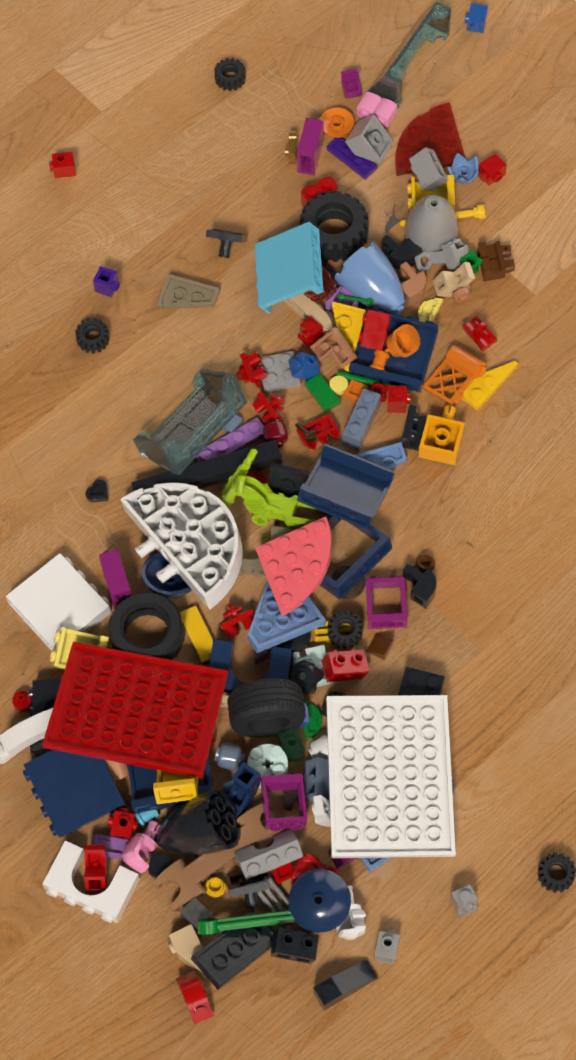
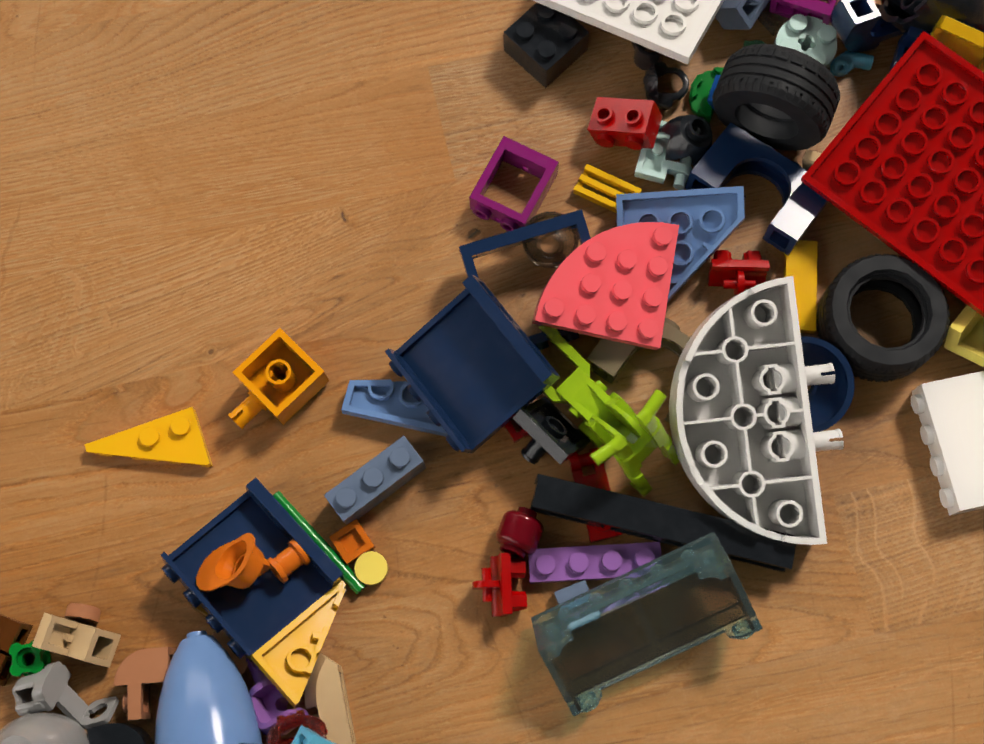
camera: 150 degrees left, 10 degrees up
(97, 492) = (843, 598): black tile -> none
(114, 576) = (892, 419): magenta window -> none
(229, 756) = (853, 90): sand blue head -> none
(248, 370) = (496, 670): red hips -> none
(278, 373) = (449, 647): light grey plate -> none
(304, 366) = (407, 623): blue brick -> none
(309, 436) = (471, 493): dark brown hand -> none
(310, 331) = (359, 684): red brick -> none
(319, 747) = (719, 40): white head -> none
(322, 393) = (404, 569): green tile -> none
(323, 427) = (451, 502): red plate -> none
(334, 344) = (336, 622): nougat brick -> none
(345, 618) = (598, 155): black tyre -> none
(369, 301) = (236, 669): green hinge -> none
(375, 330) = (260, 606): red brick -> none
(380, 646) = (556, 134): reddish brown slope -> none
(382, 388) = (322, 509): red plate -> none
(397, 399) = (300, 484): red brick -> none
(413, 429) = (310, 421): black bracket -> none
(424, 587) = (446, 178): black brick -> none
(425, 559) = (420, 208): reddish brown plate -> none
(429, 309) = (153, 618): light yellow tile -> none
(464, 365) = (163, 482): orange piece -> none
(479, 333) = (104, 523): red hips -> none

